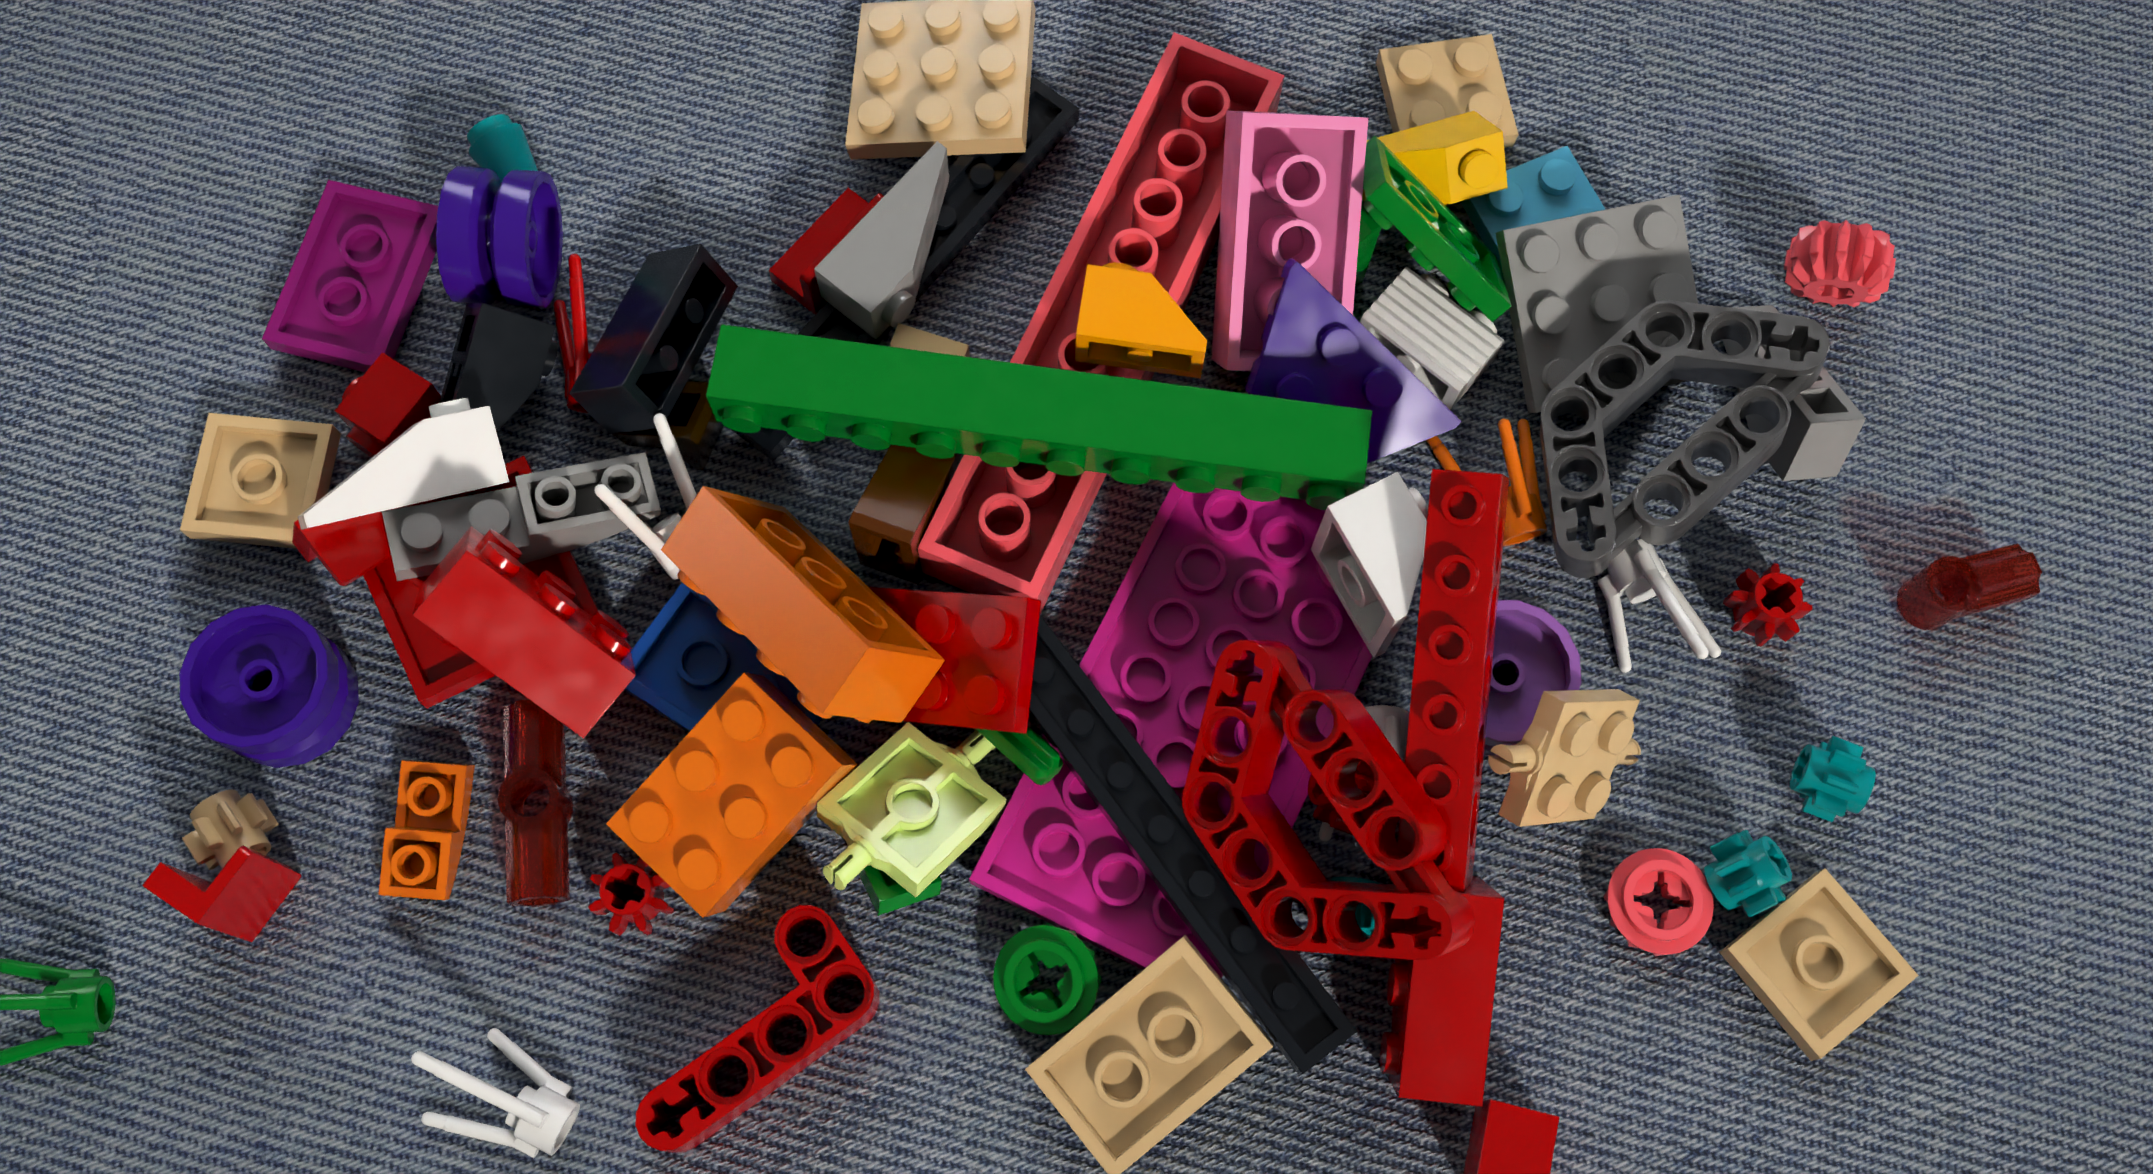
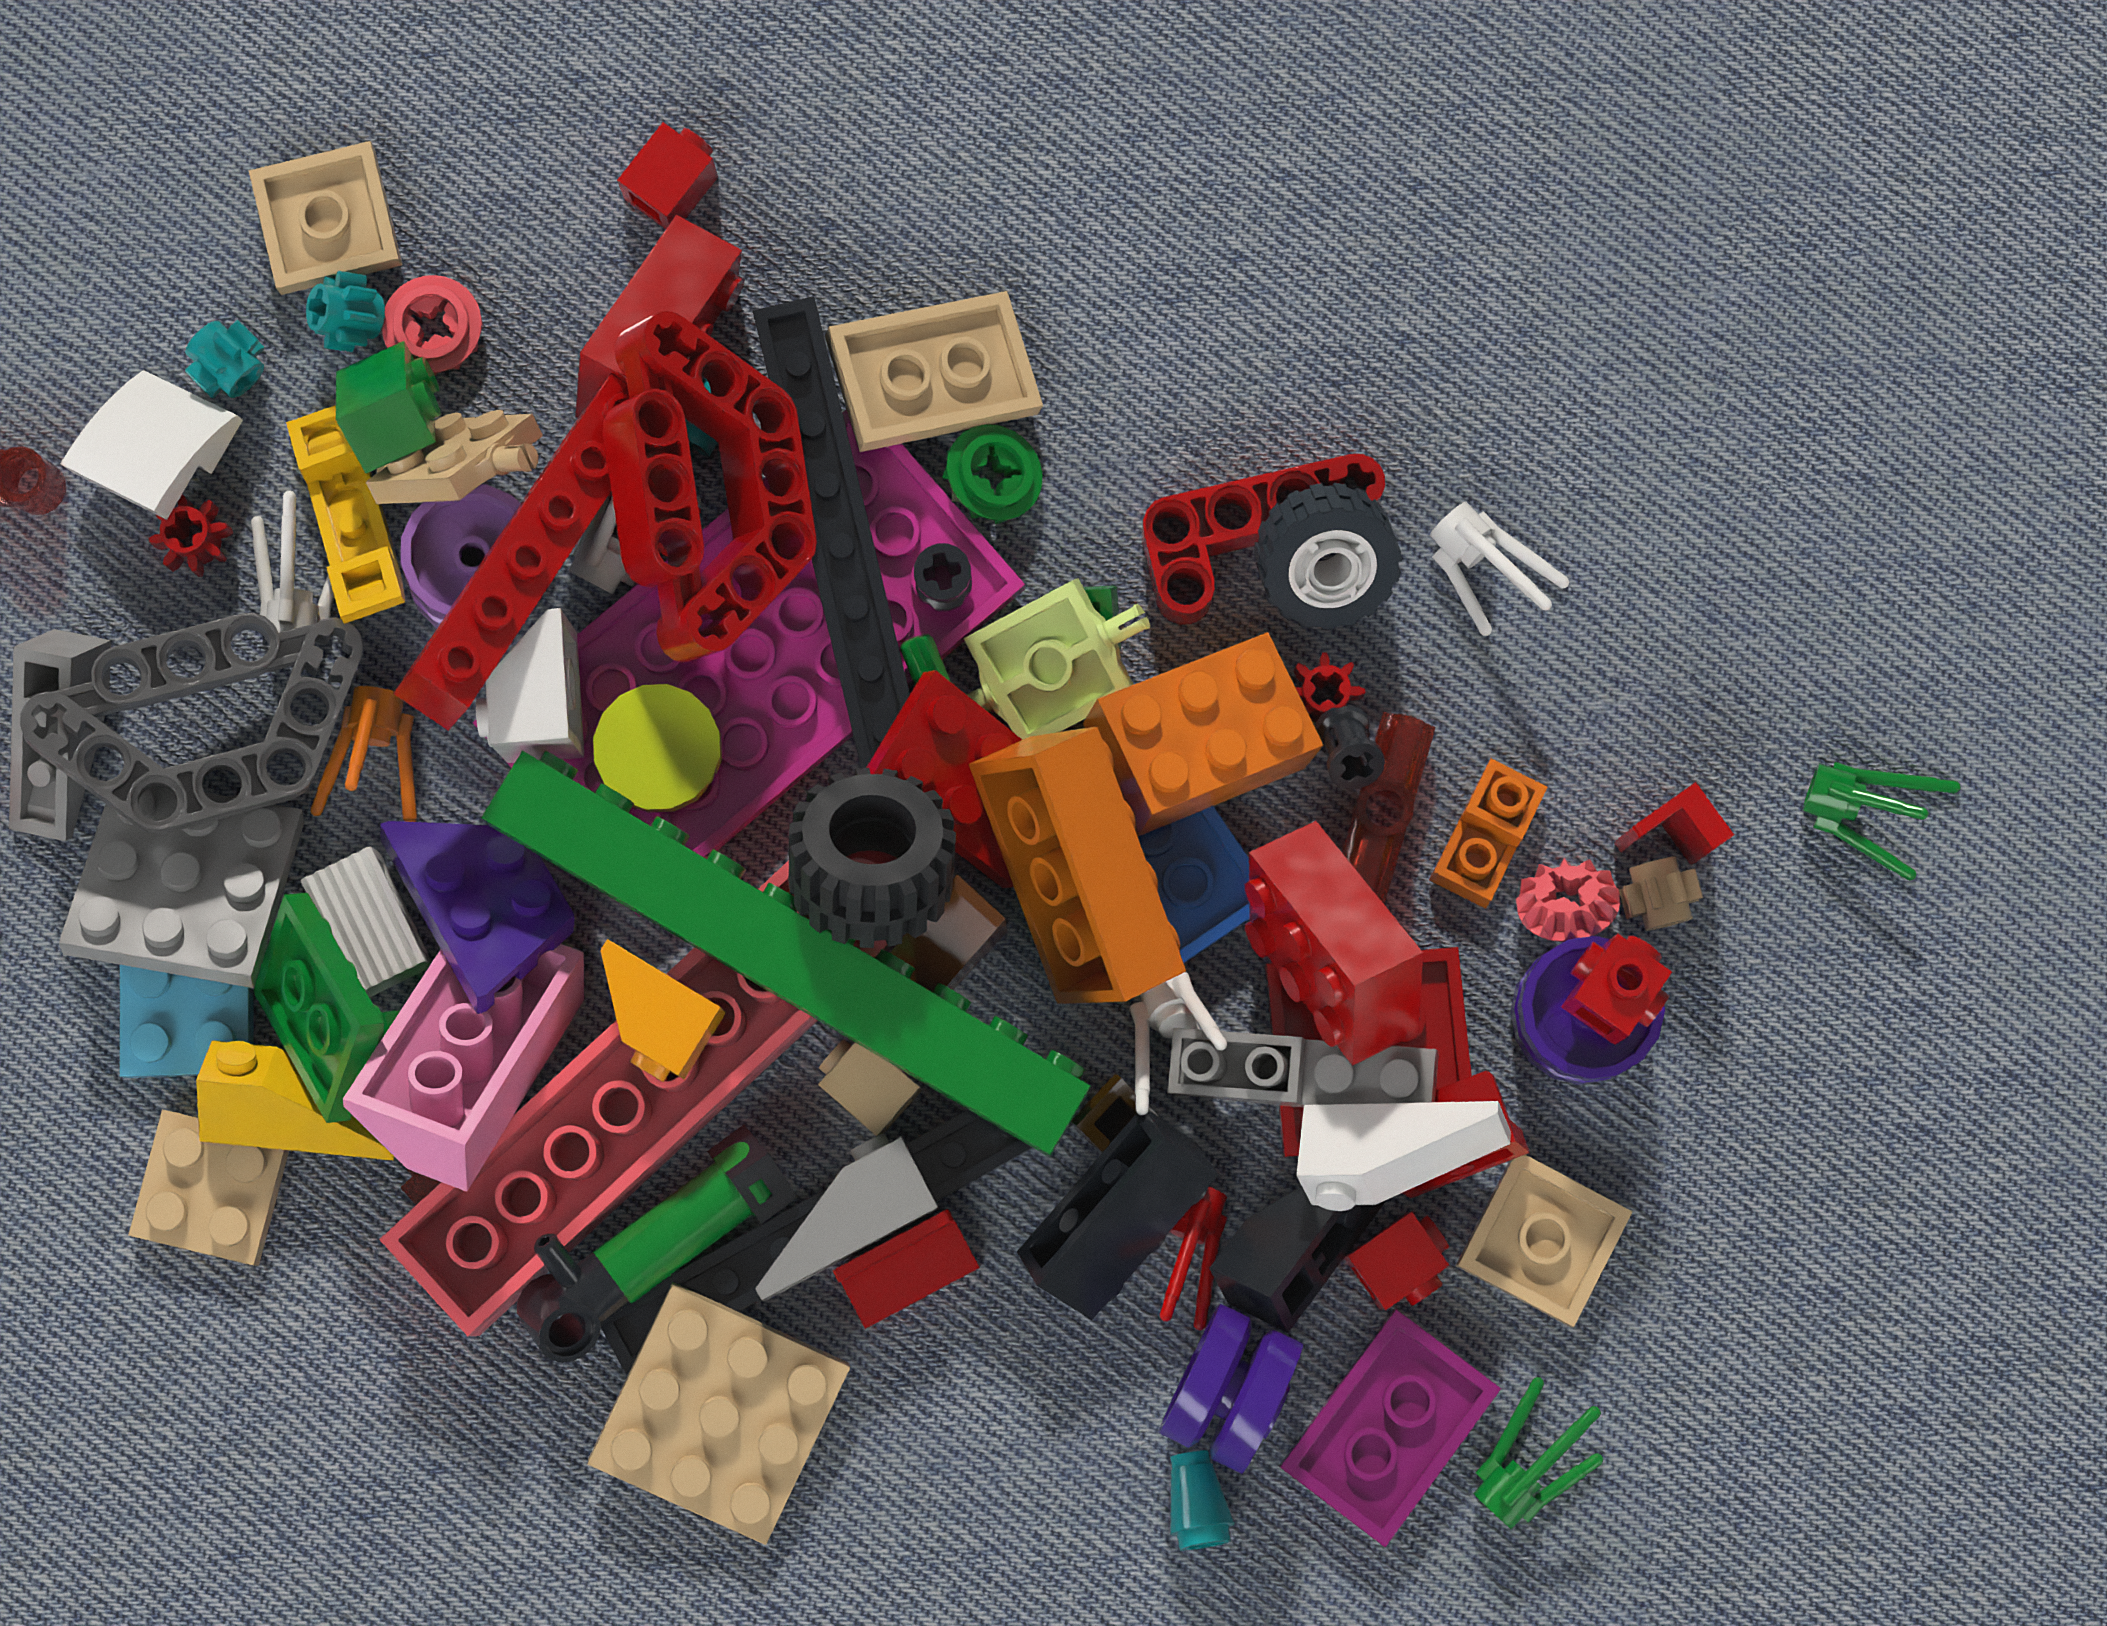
camera: 155 degrees left, 10 degrees up
(223, 688) = (1603, 1002): none -> red brick
(229, 267) = (1513, 1491): none -> green plant
(319, 761) = (1561, 918): none -> coral gear
(582, 837) = (1344, 754): none -> black bush
(669, 1025) = (1320, 524): none -> black wheel
(1033, 551) = (863, 898): none -> black tyre
(1052, 819) = (957, 564): none -> black bush
(1100, 95) = (650, 1249): none -> piece
(1247, 578) = (657, 747): none -> neon yellow tile
(1615, 655) = (350, 522): none -> yellow slope
(1660, 782) = (387, 406): none -> green brick
(1852, 670) = (151, 442): none -> white slope

